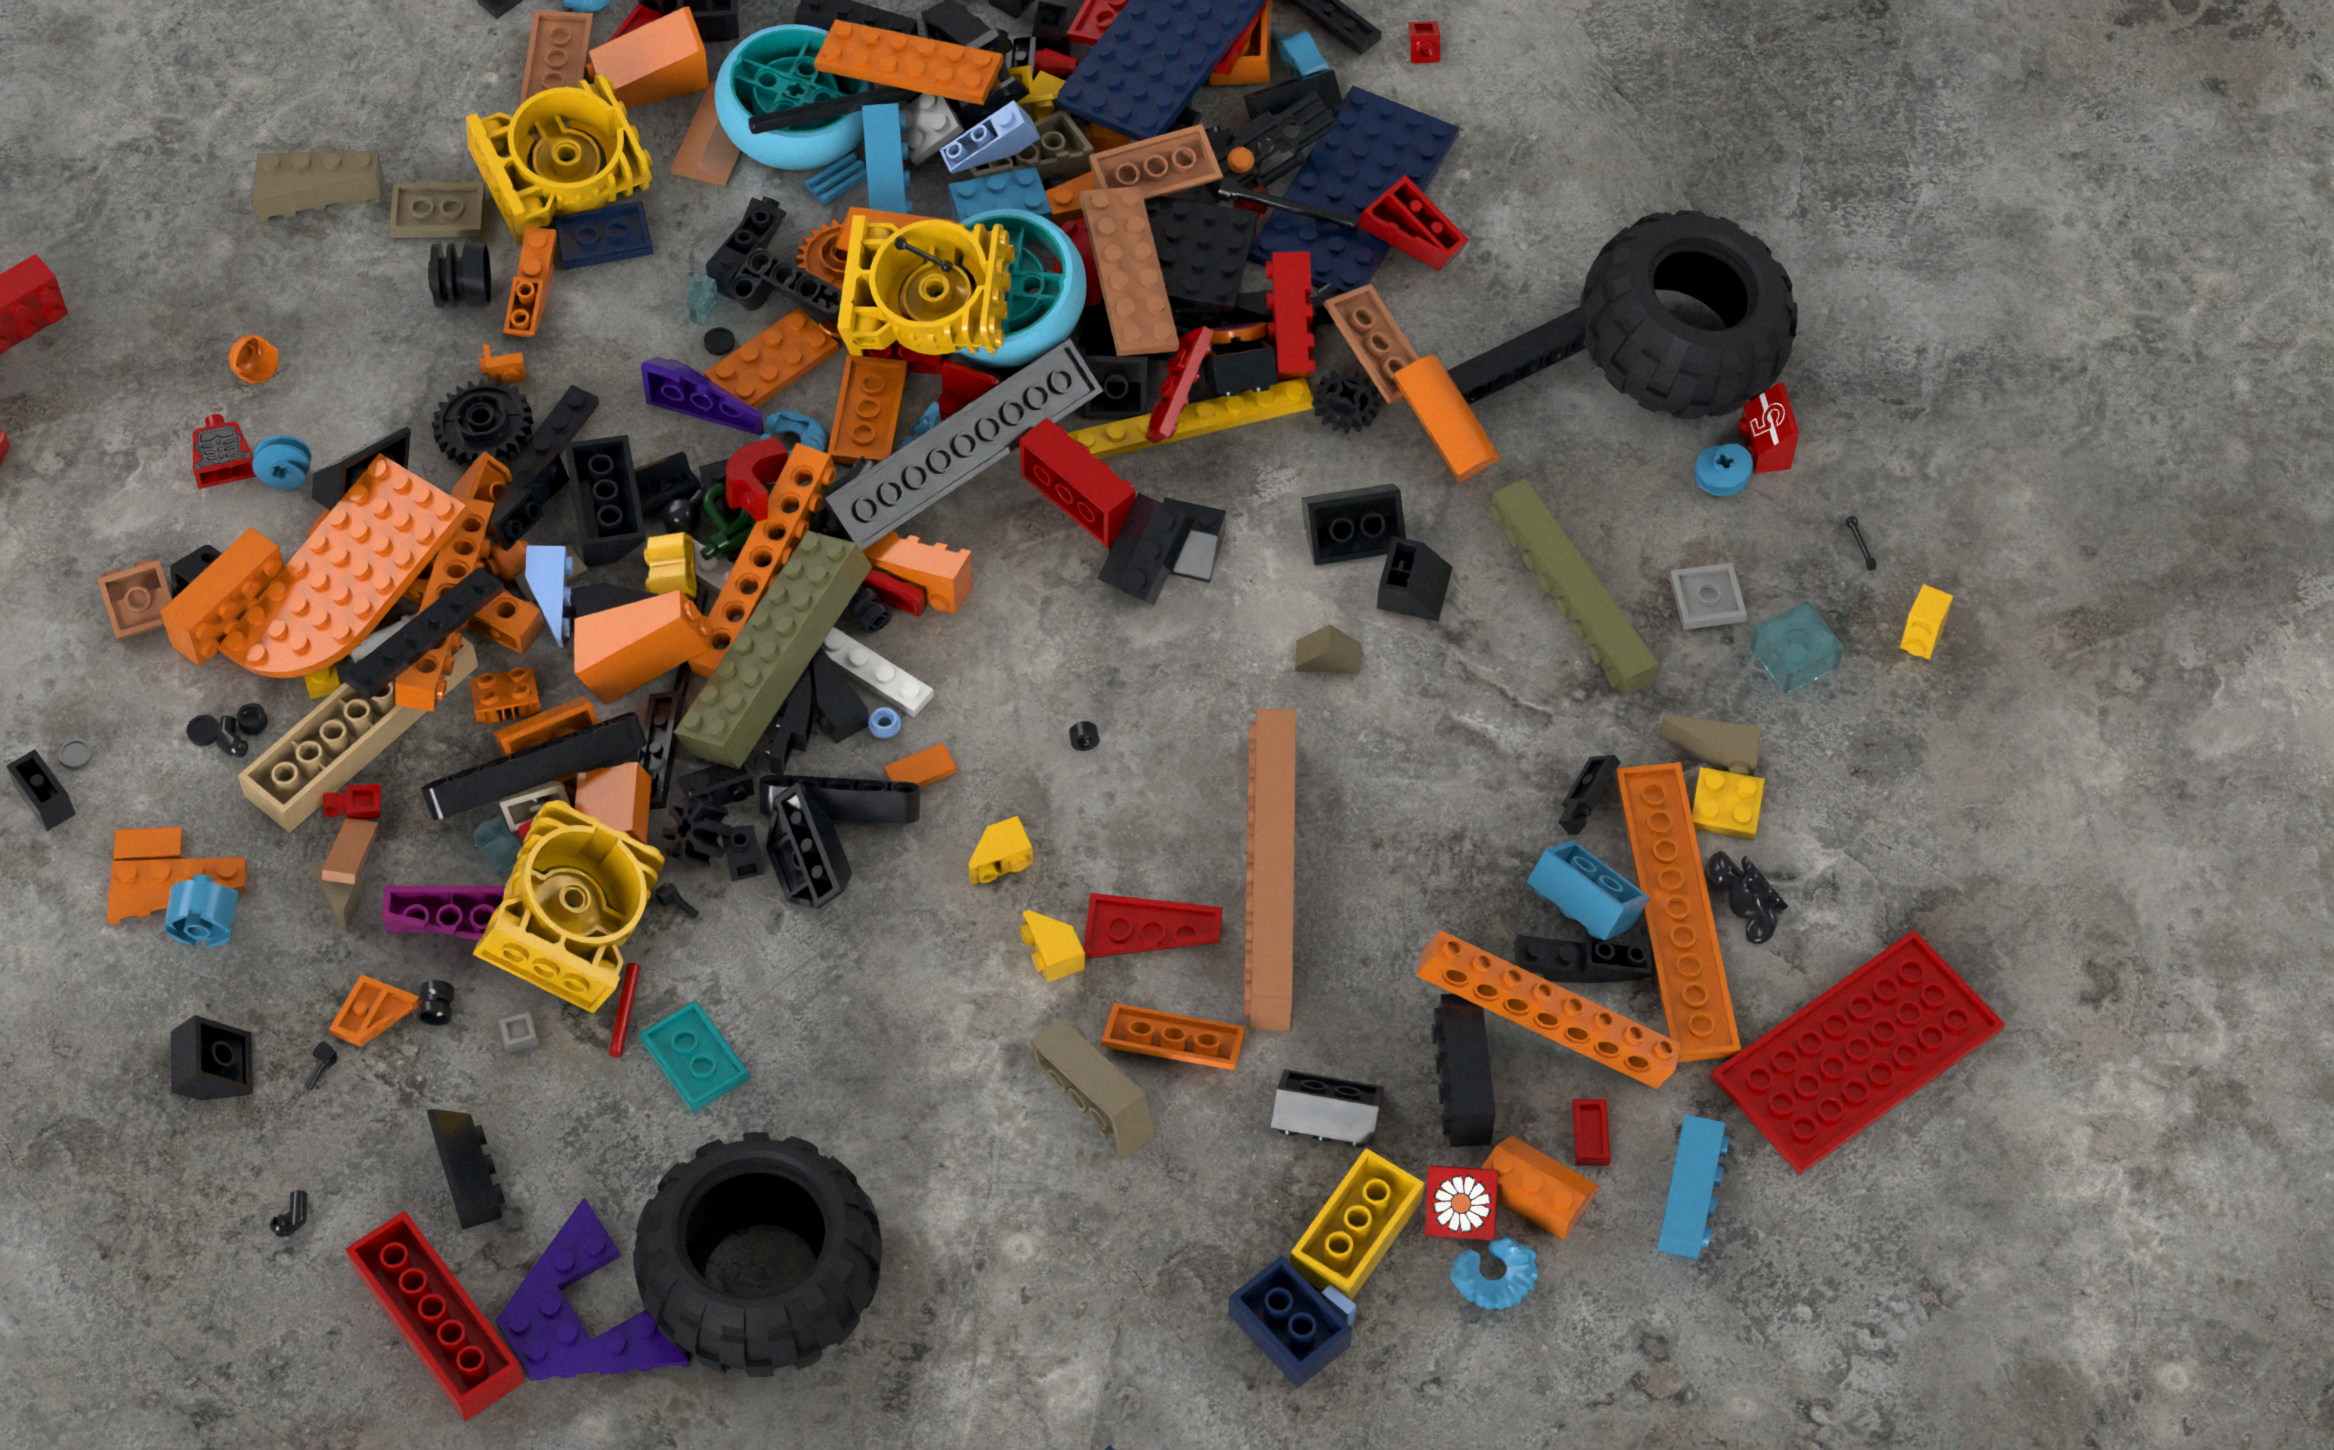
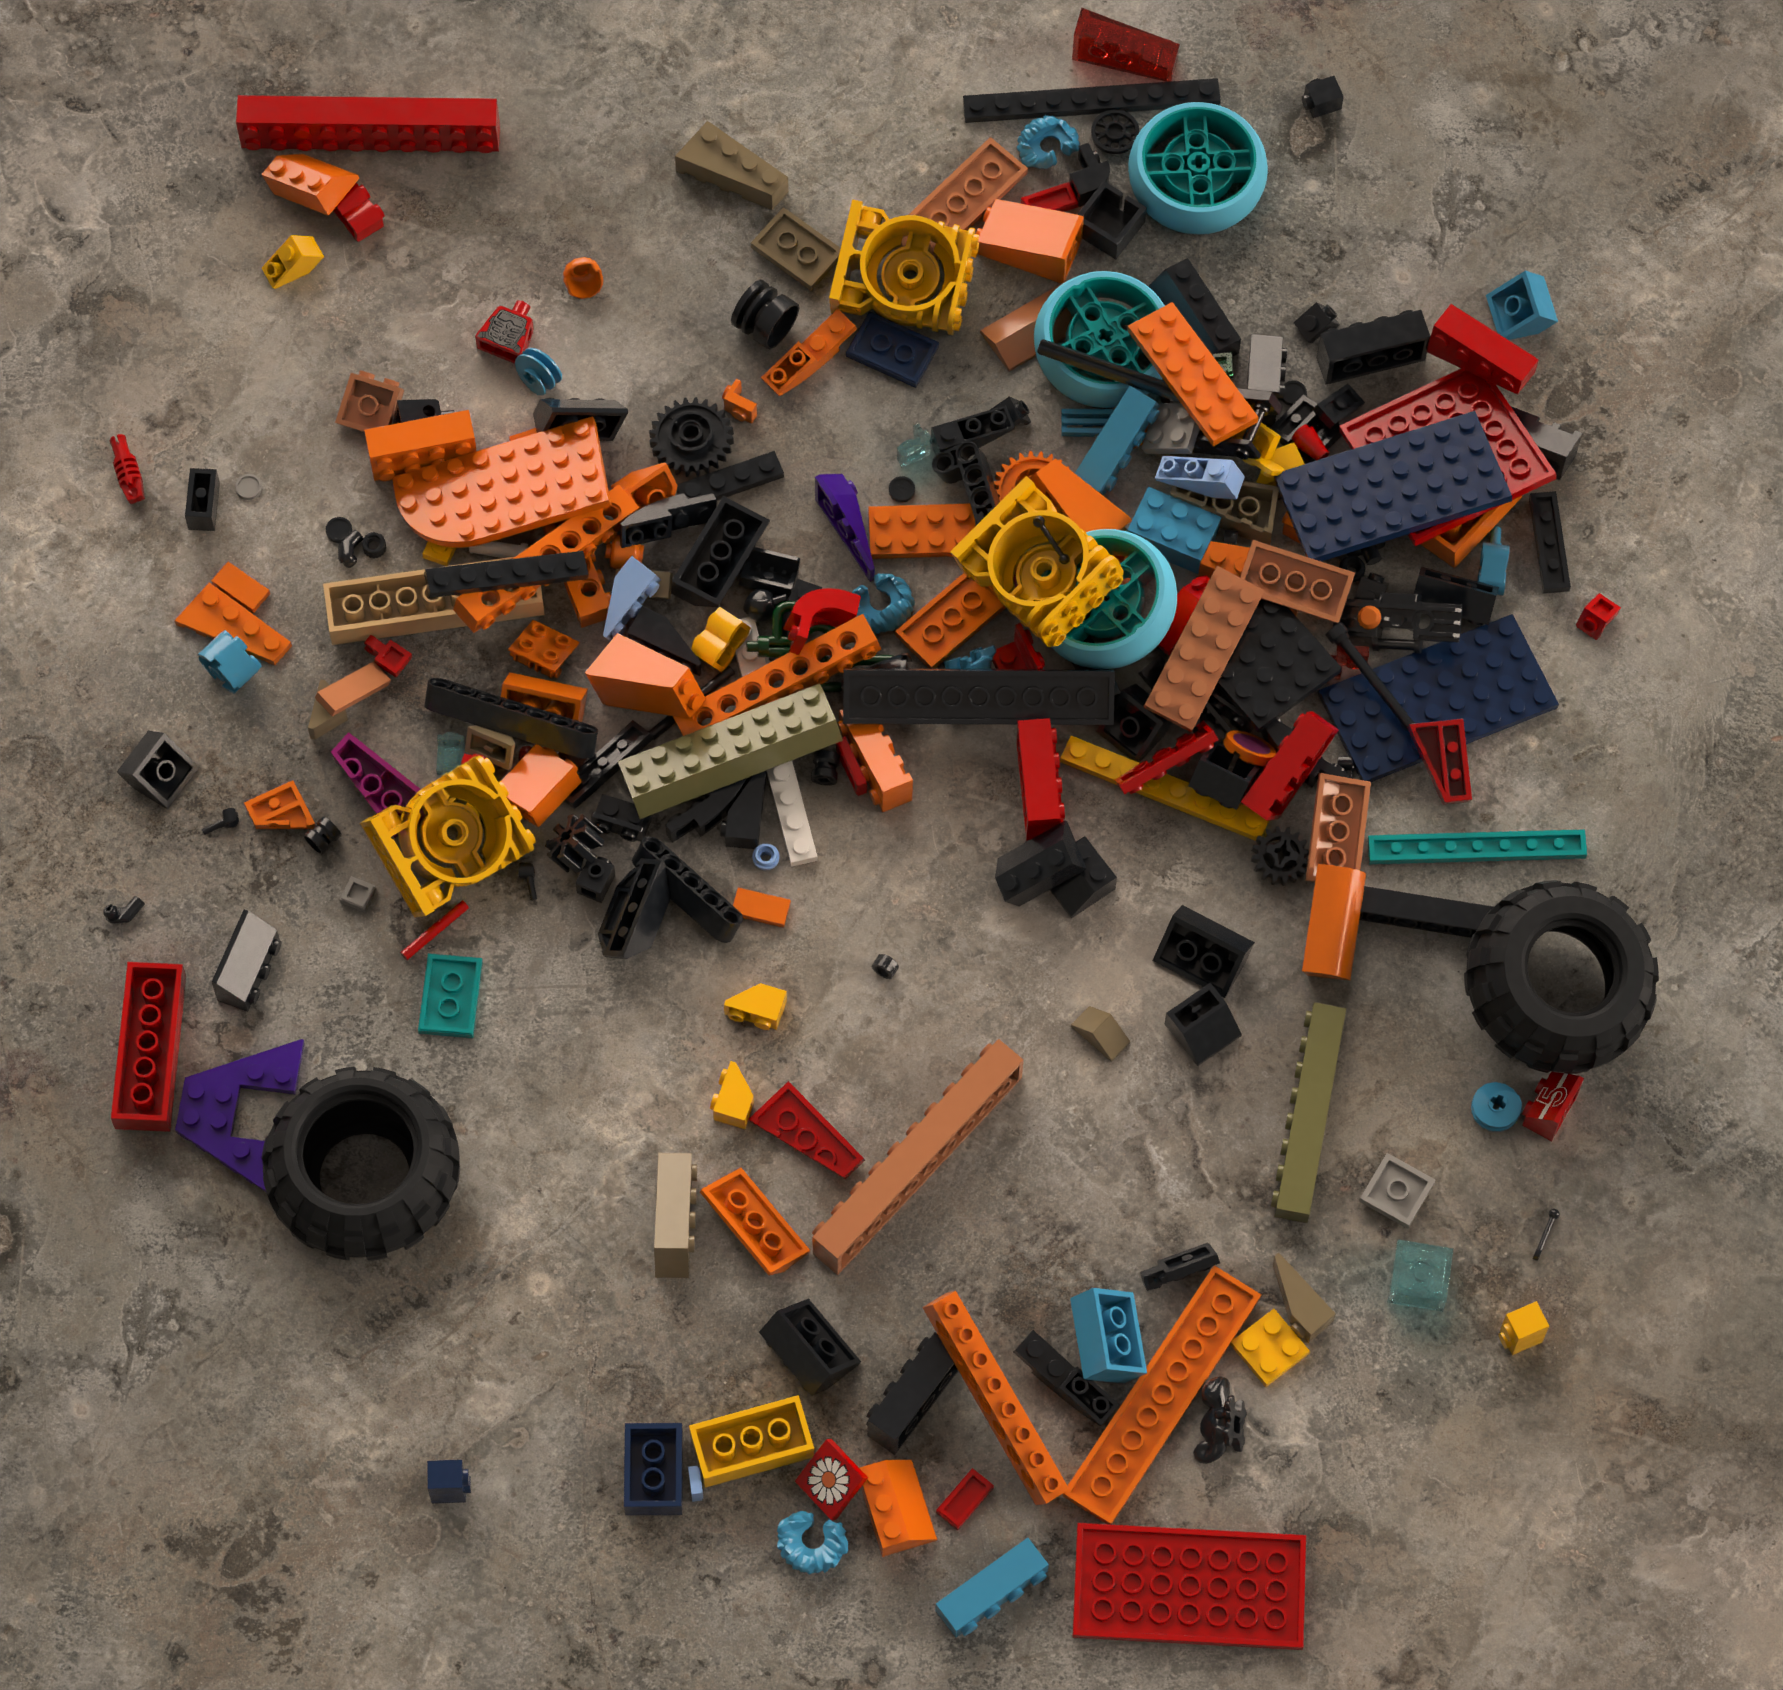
camera: 40 degrees right, 10 degrees up
(1502, 281) = (1477, 846): none -> teal plate

